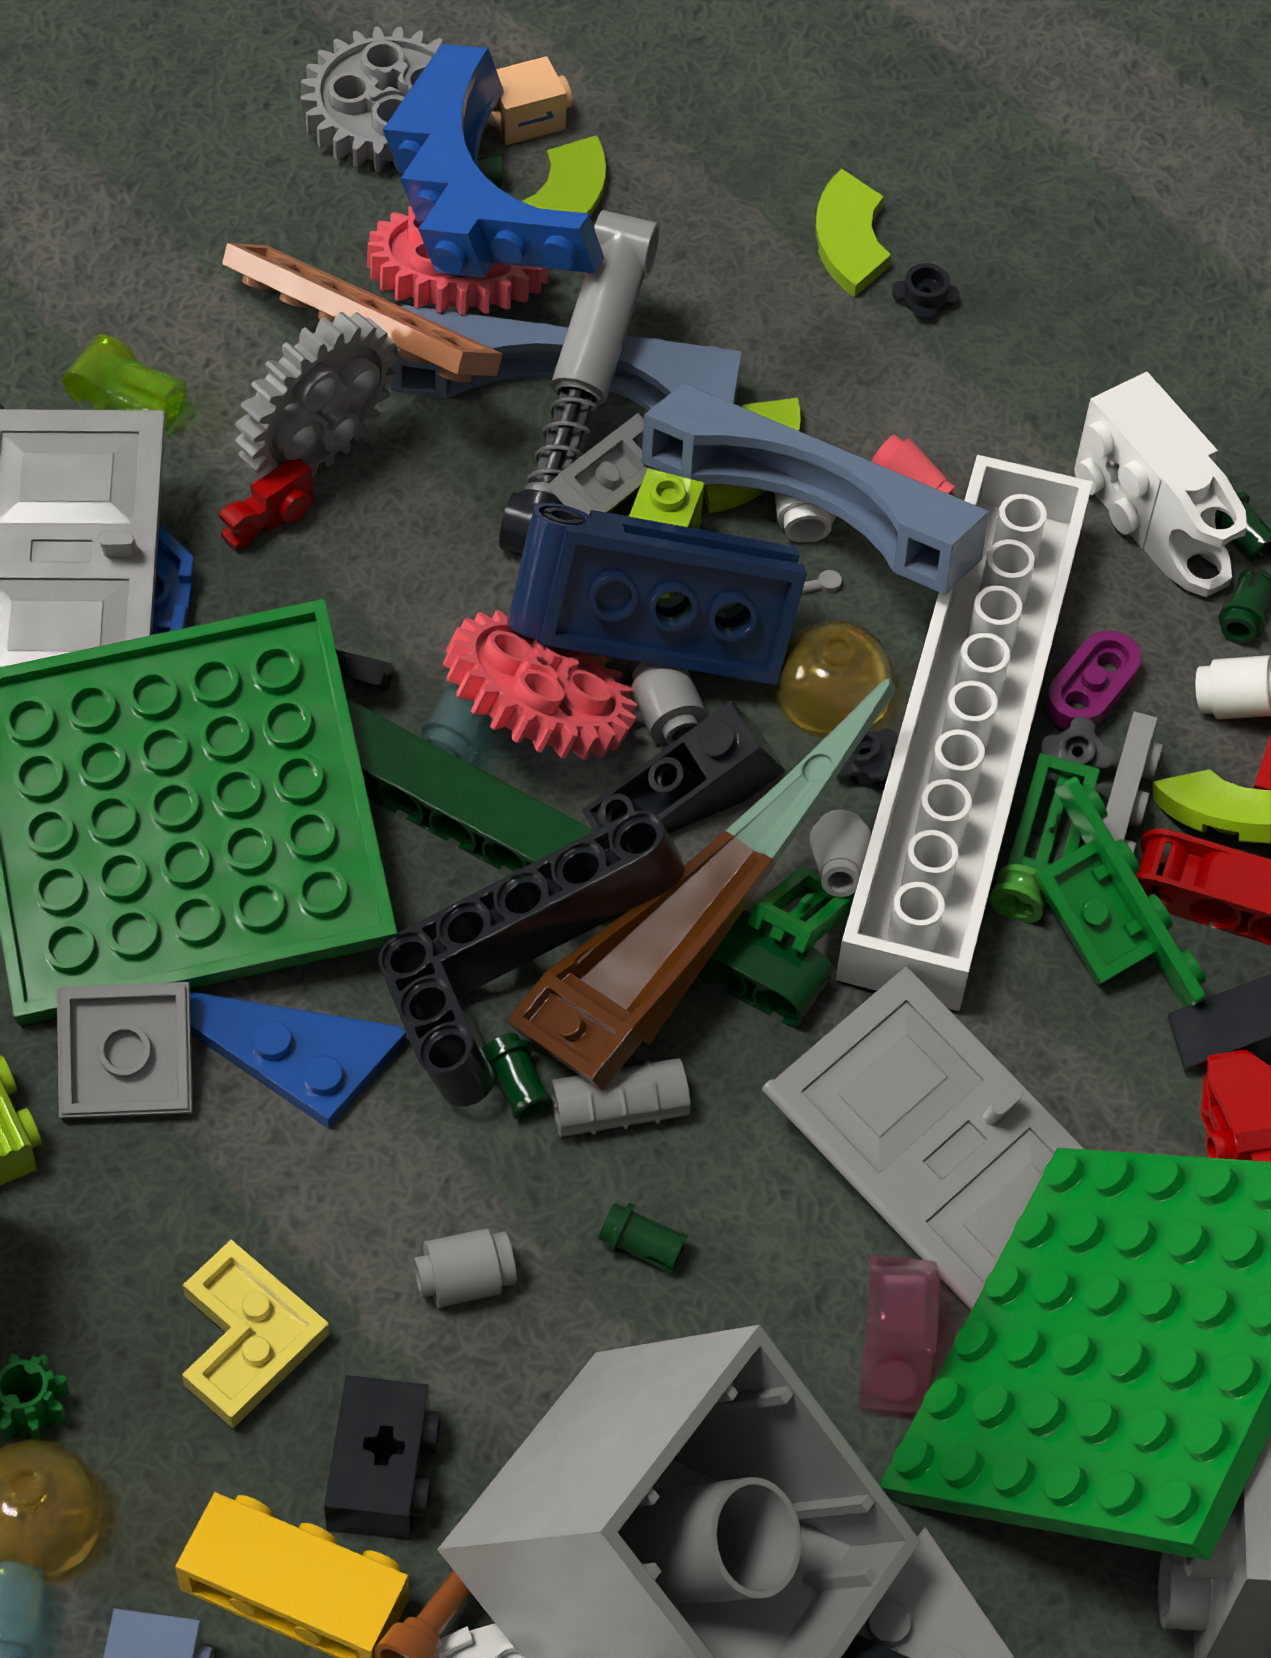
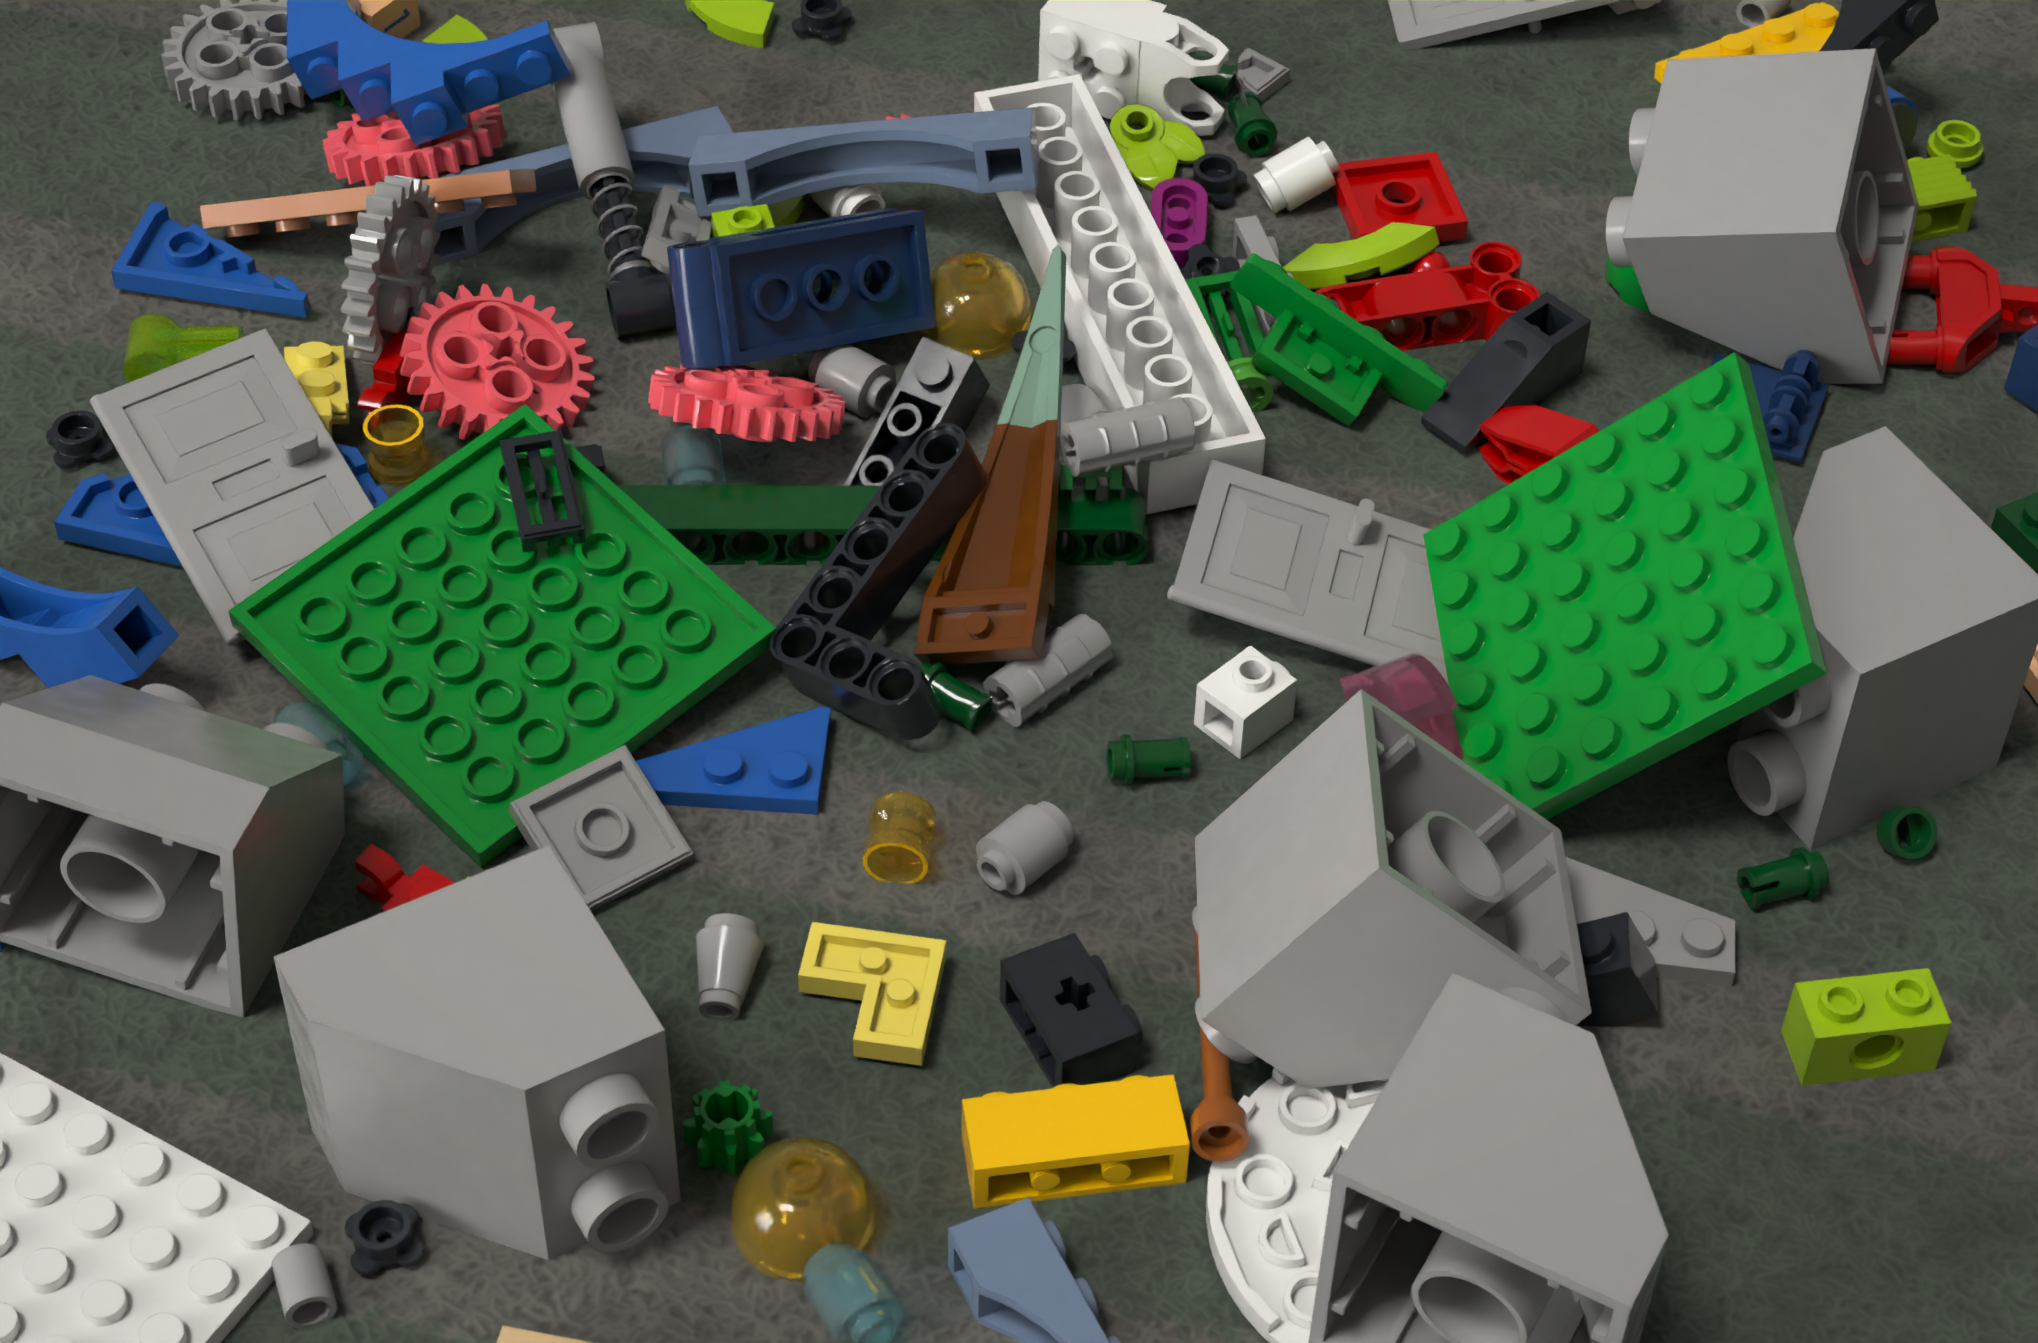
camera: 30 degrees left, 10 degrees down
(137, 1238) = (726, 963): none -> light grey cone
(188, 292) = (193, 266): none -> blue wing
(200, 481) = (322, 378): none -> light yellow hinge
(228, 569) = (396, 445): none -> clear yellow wheel
(264, 739) = (550, 529): none -> black tile
(366, 1197) = (902, 828): none -> clear yellow wheel
(409, 518) = (491, 357): none -> coral gear
(770, 1229) = (1245, 701): none -> white brick
(825, 909) = (1127, 436): none -> light grey axle
(1127, 589) = (1157, 148): none -> lime plate
(1174, 638) = (1219, 177): none -> black plate

